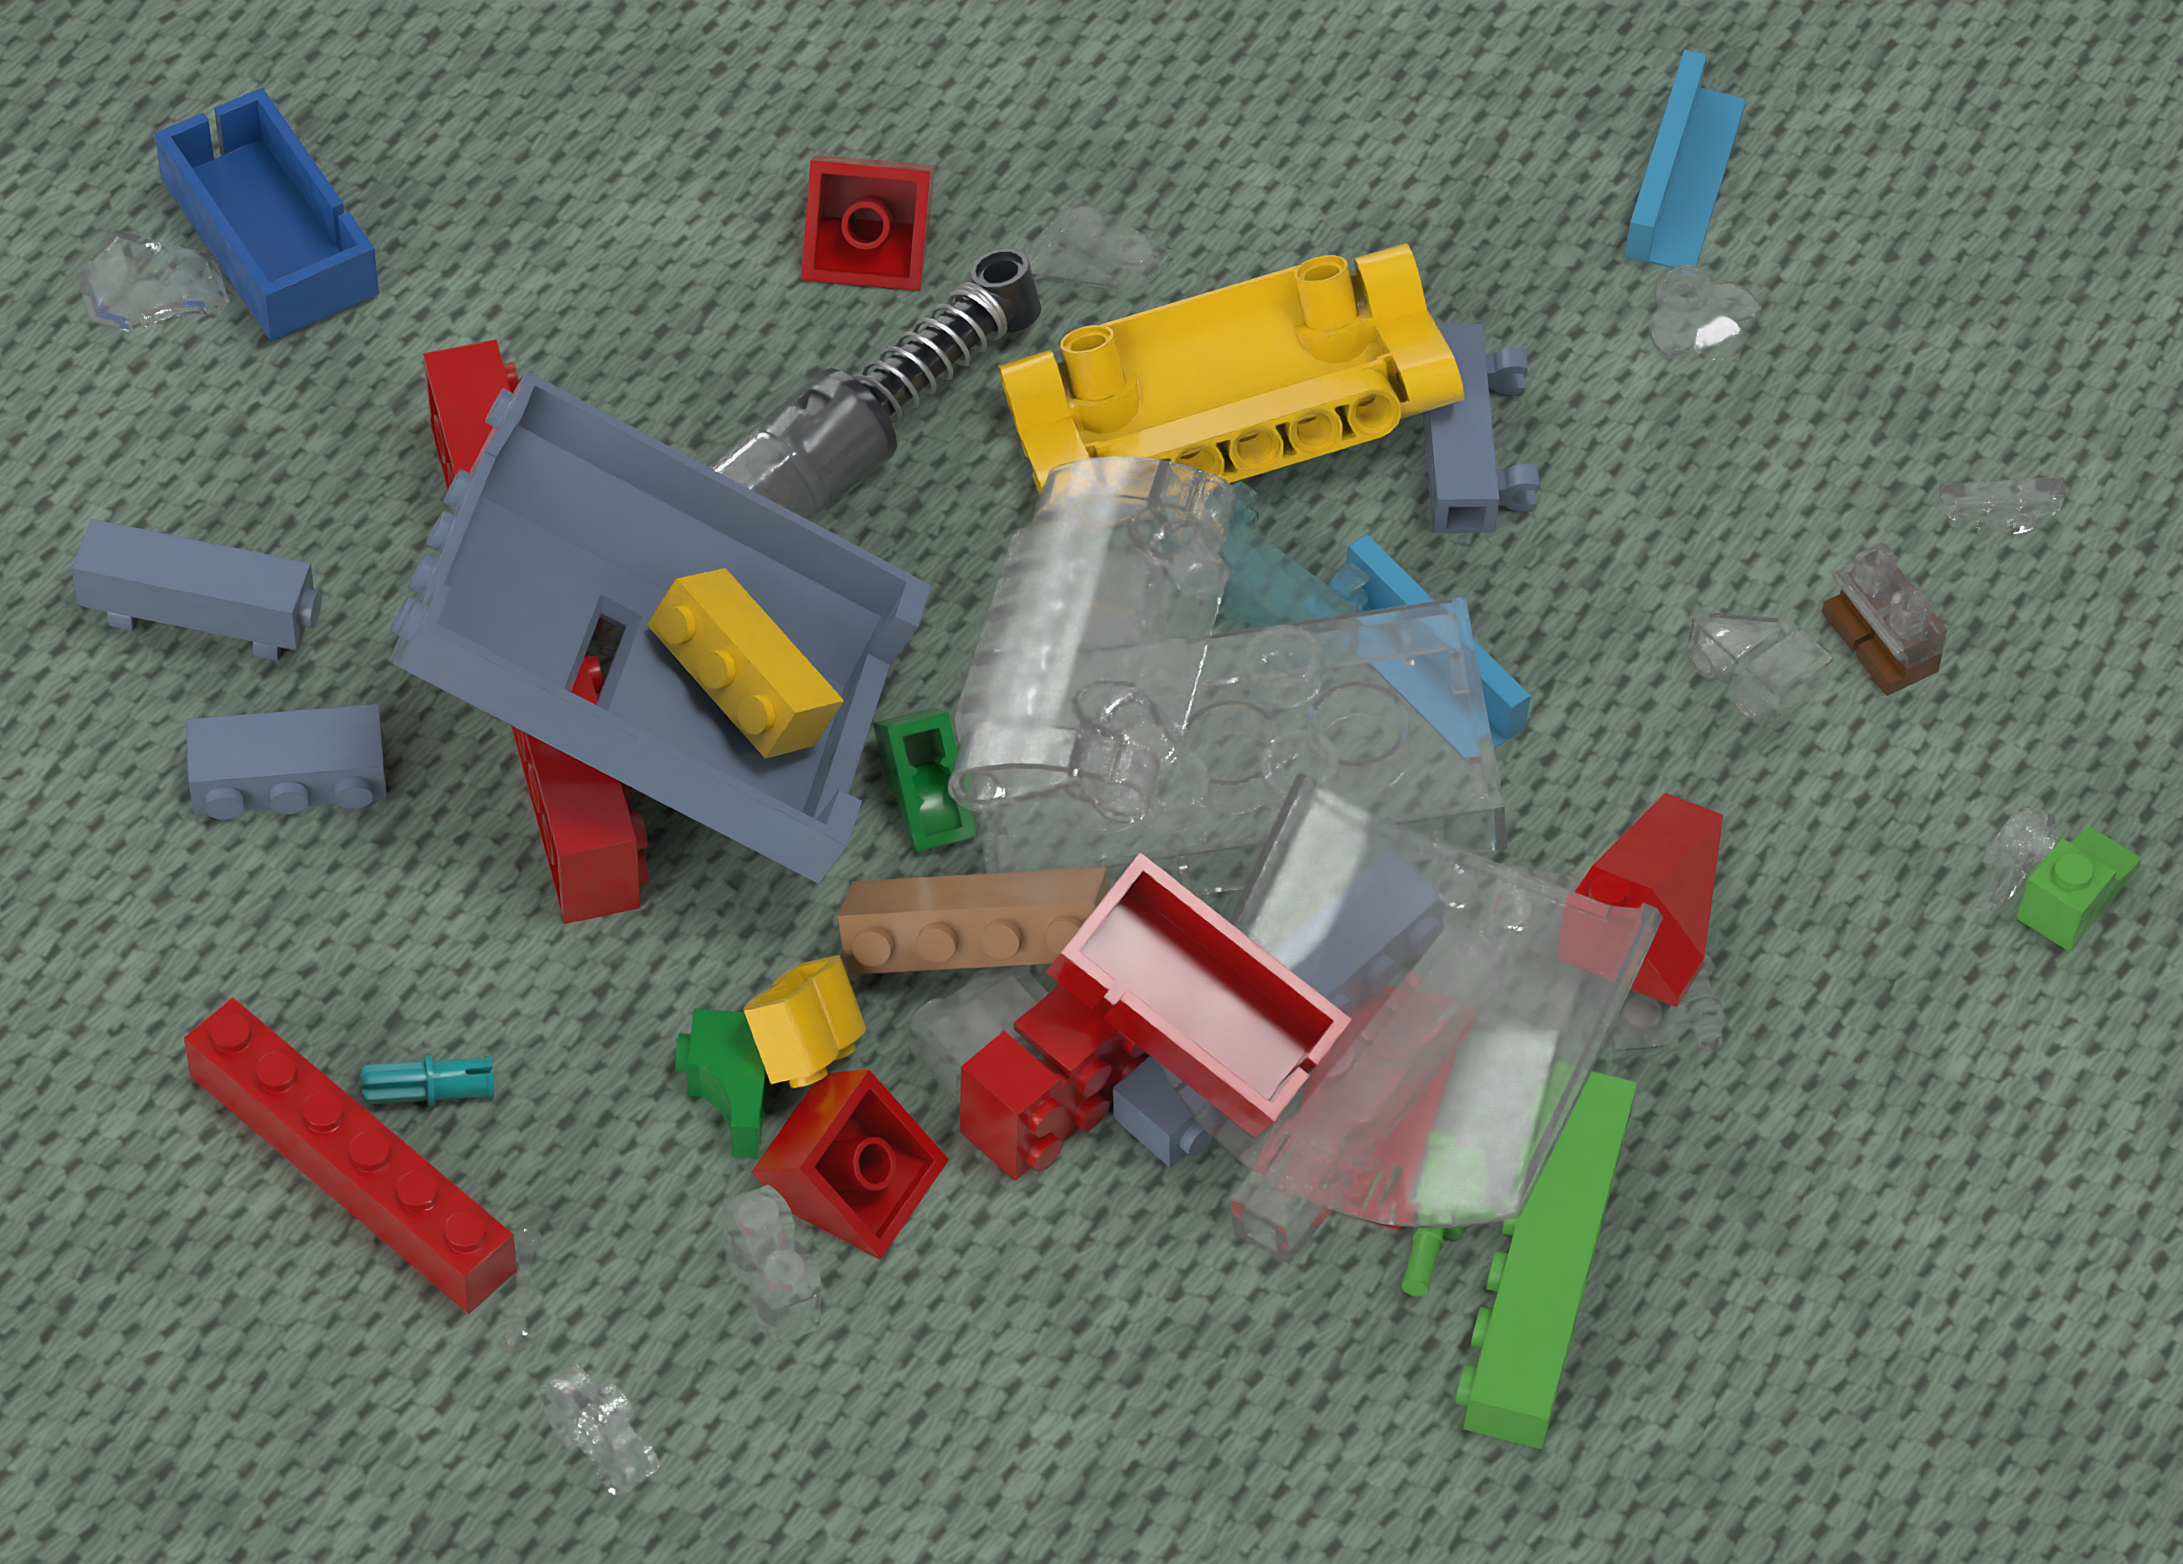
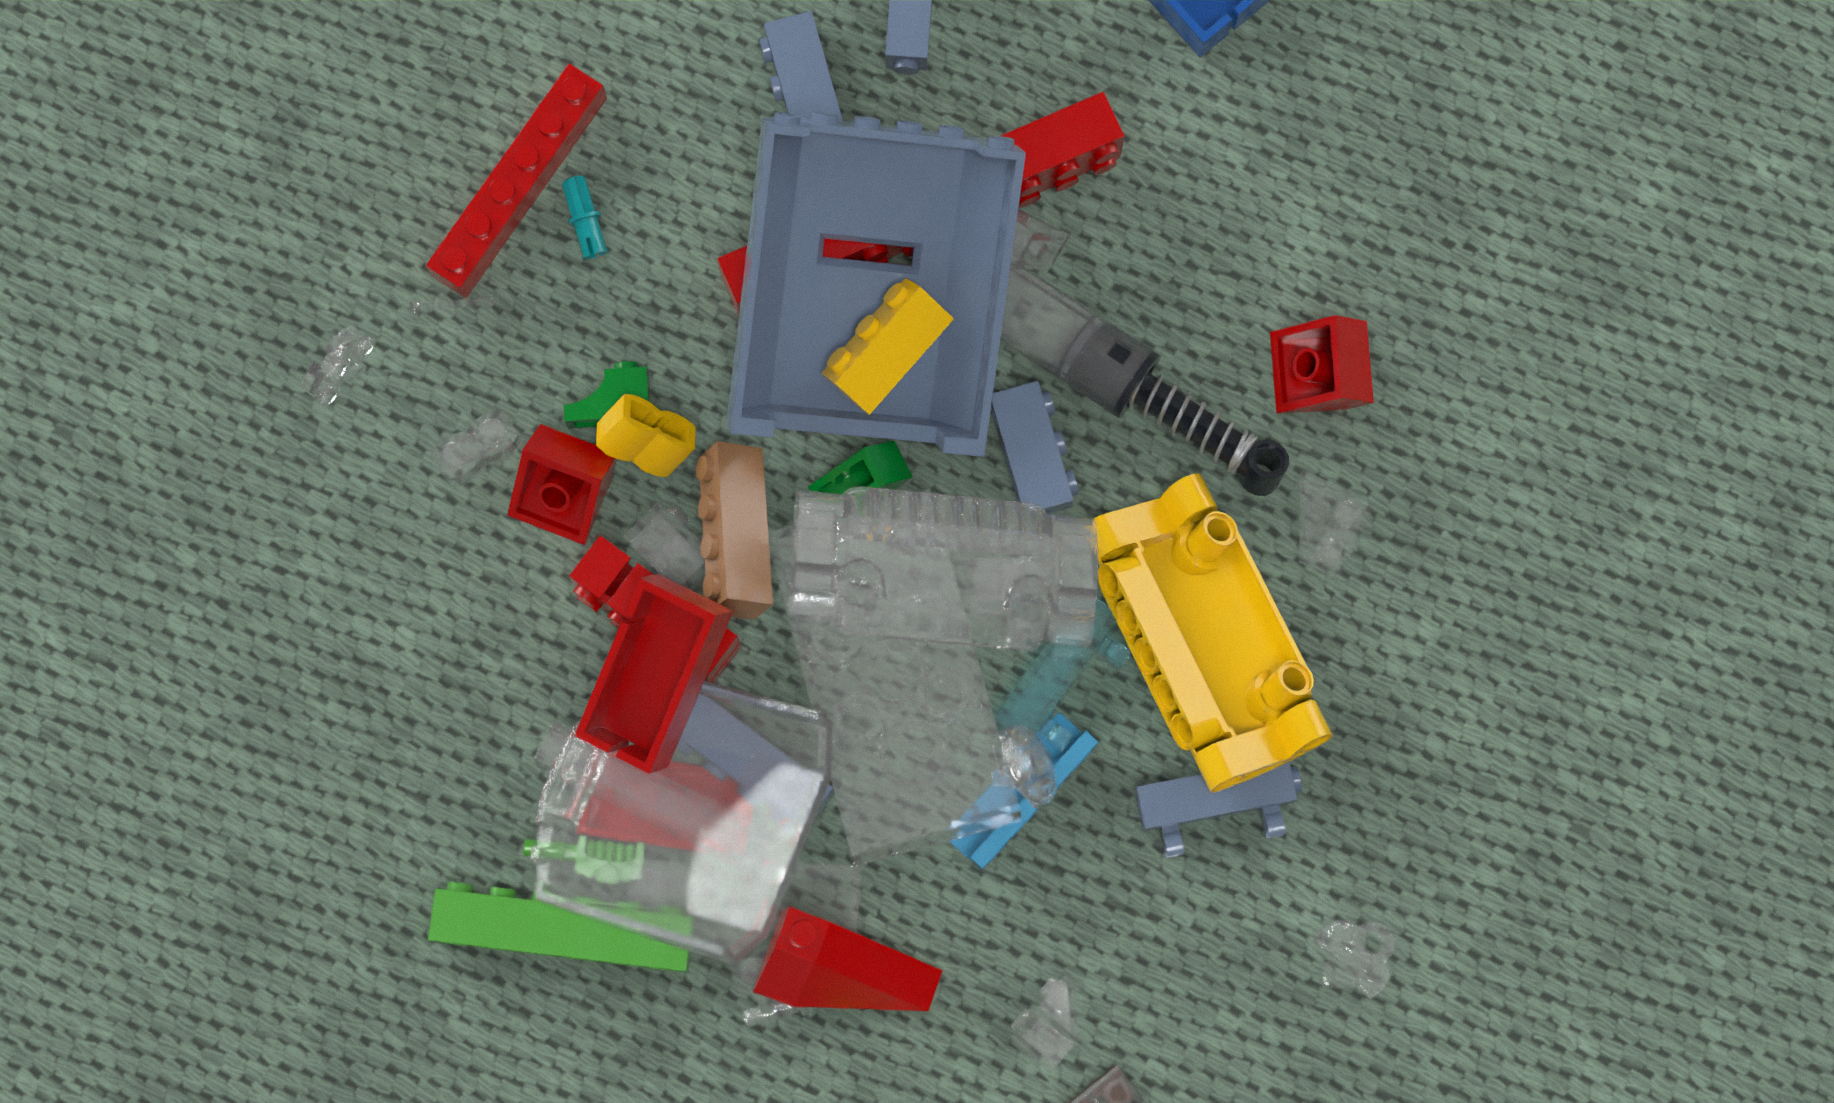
camera: 85 degrees right, 25 degrees up
(951, 553) = (1033, 448): none -> sand blue brick
(1396, 589) = (1027, 765): none -> clear dish
(1684, 169) = (1490, 932): dark azure panel -> none

